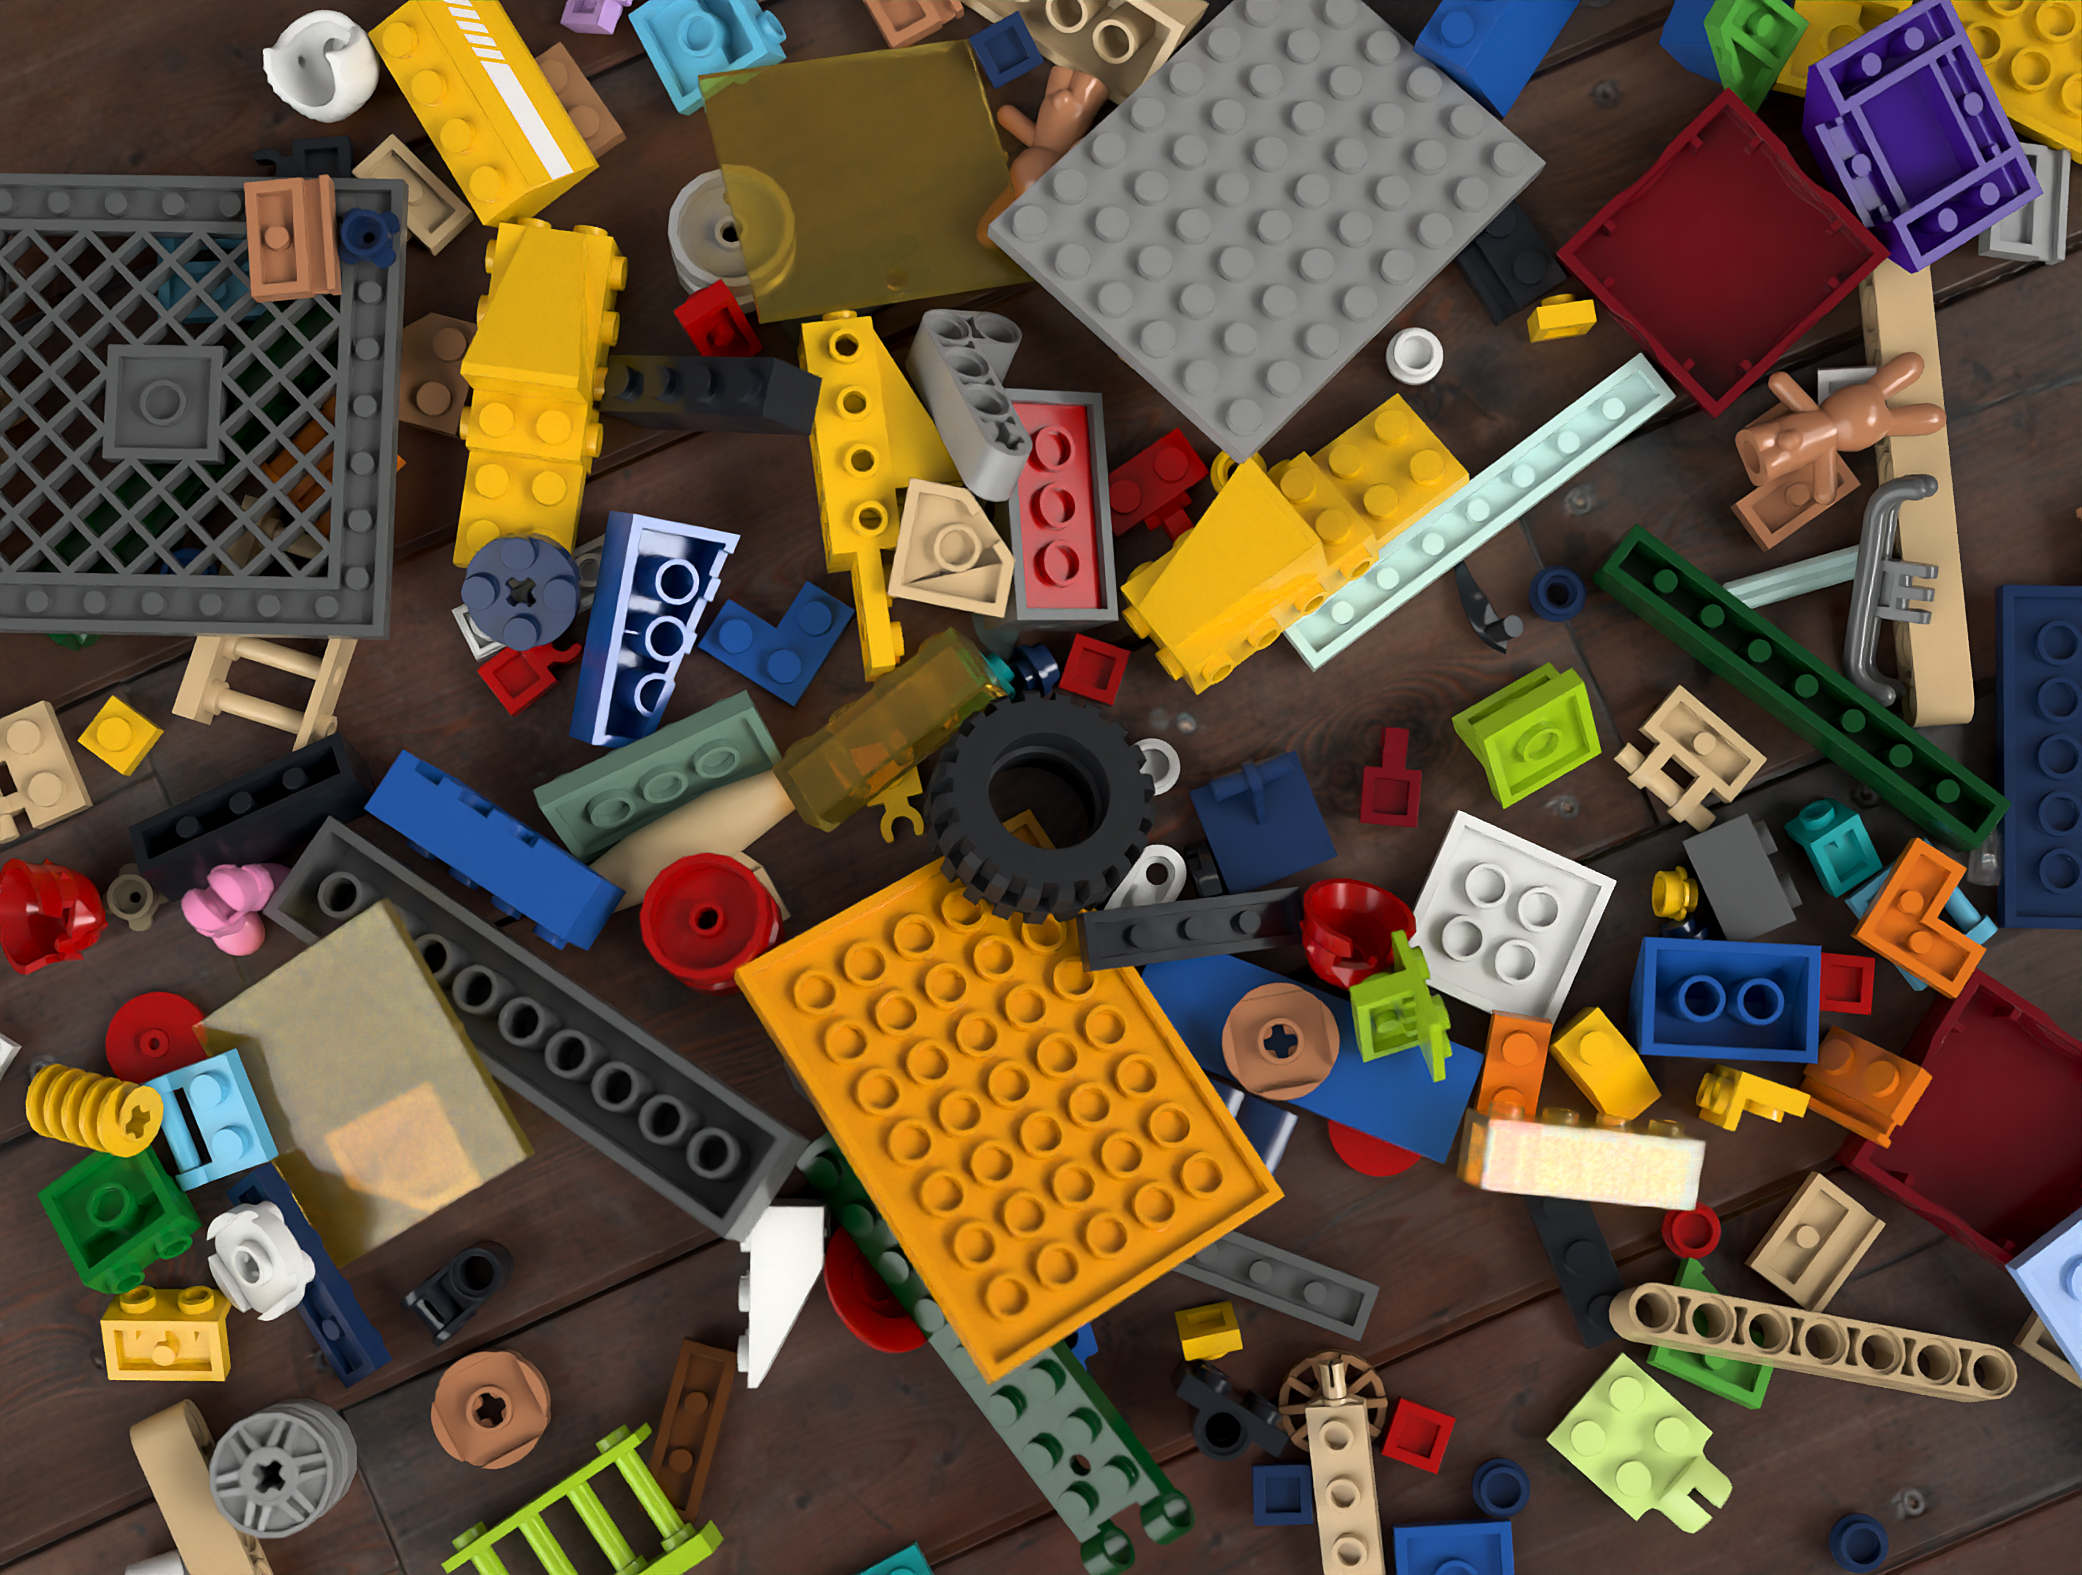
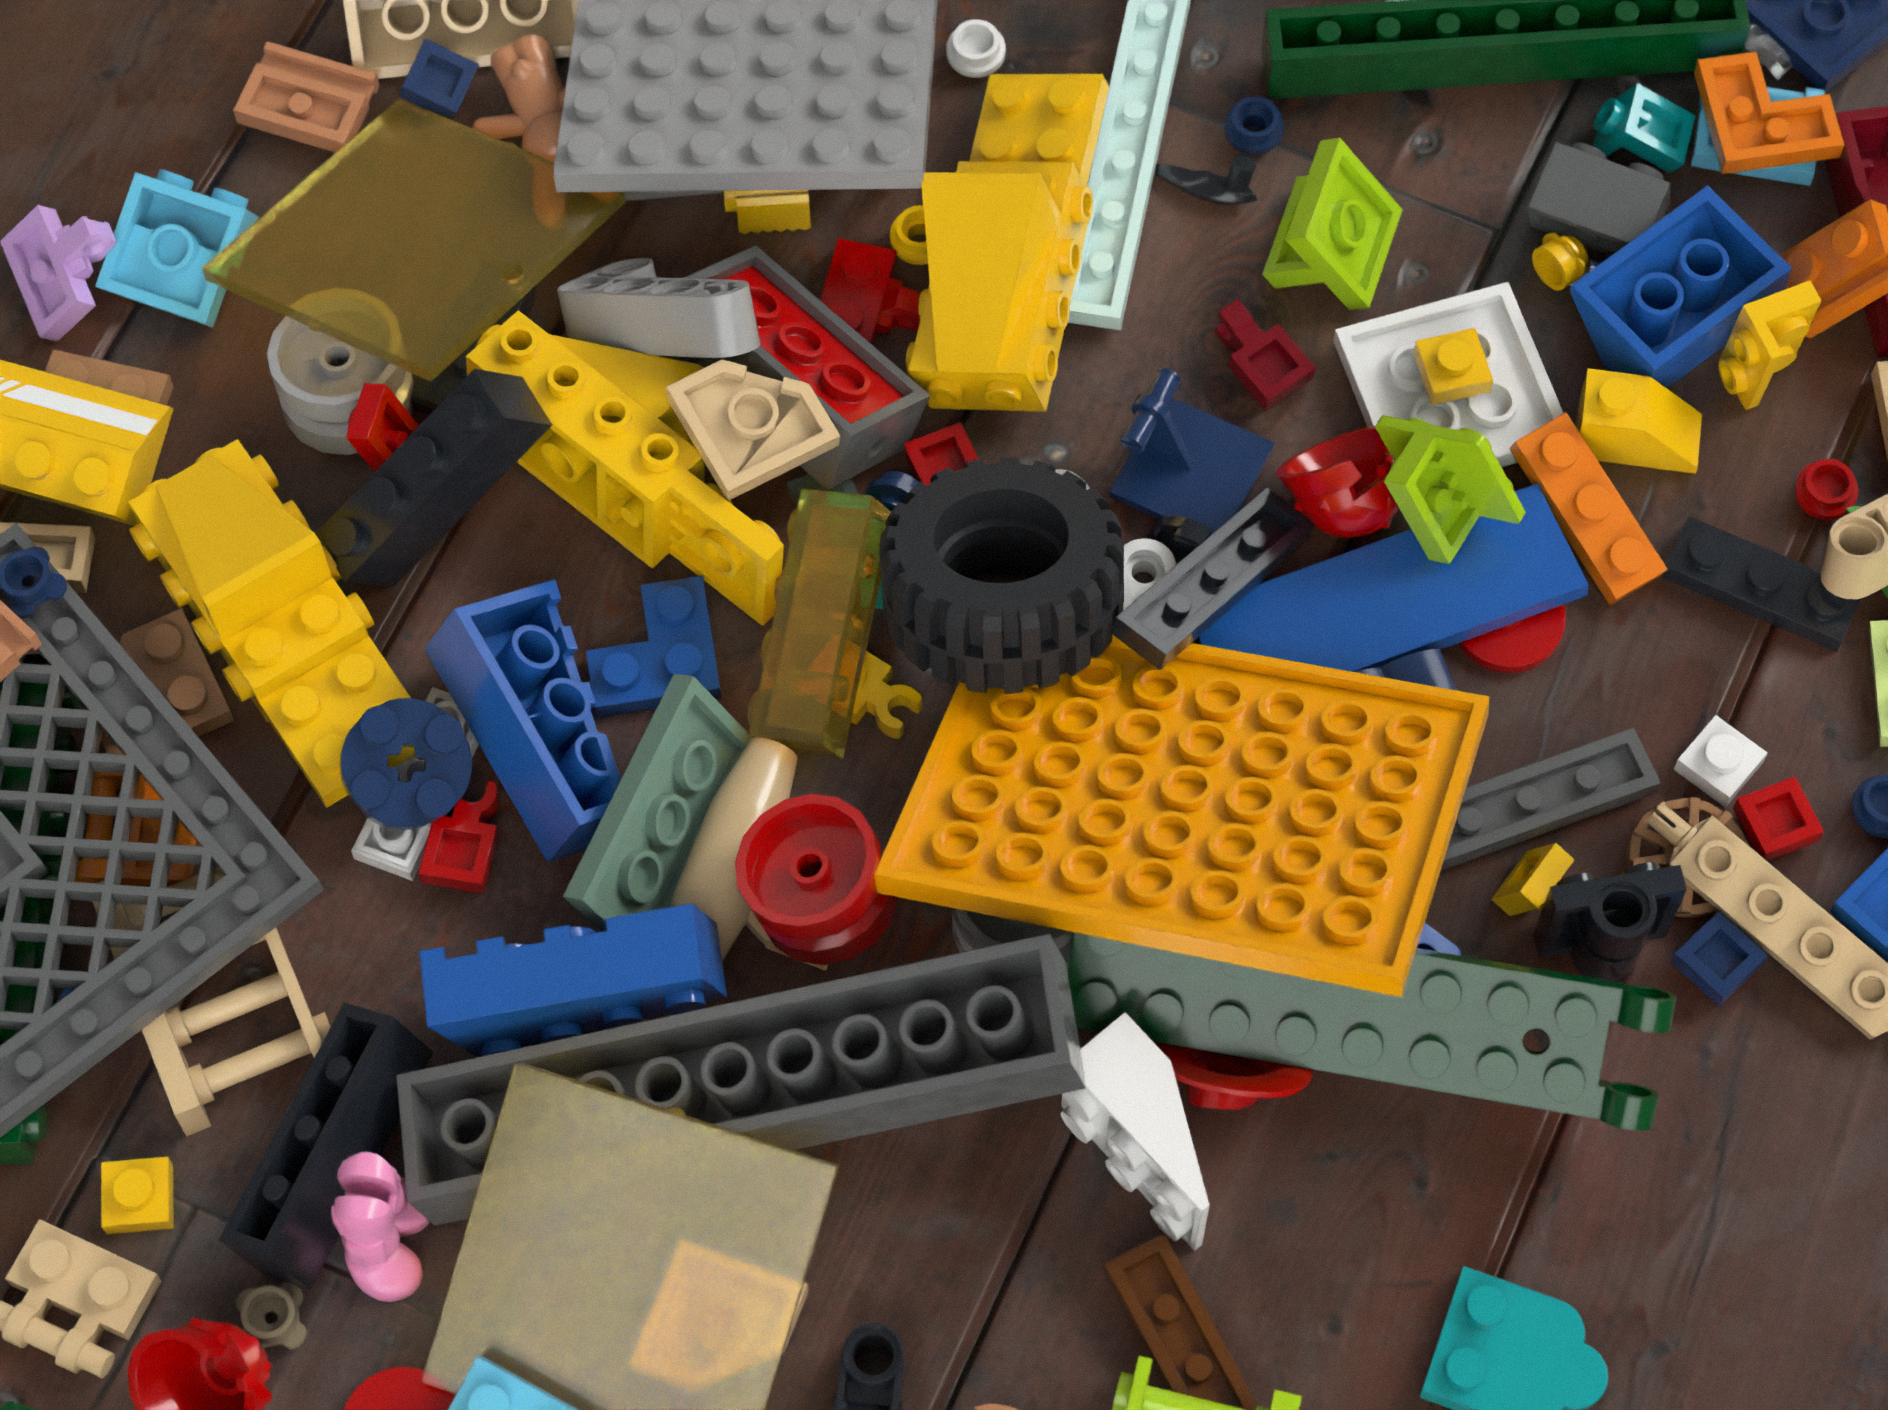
camera: 40 degrees left, 20 degrees down
(1298, 1014) = (1368, 635): nougat plate -> none
(1422, 1355) = (1720, 761): none -> white plate
(1511, 915) = (1453, 366): none -> yellow plate
(1579, 1157) = (1686, 489): clear yellow brick -> none
(1699, 744) = (1473, 142): tan plate -> none
(1846, 983) = (1761, 212): red plate -> none

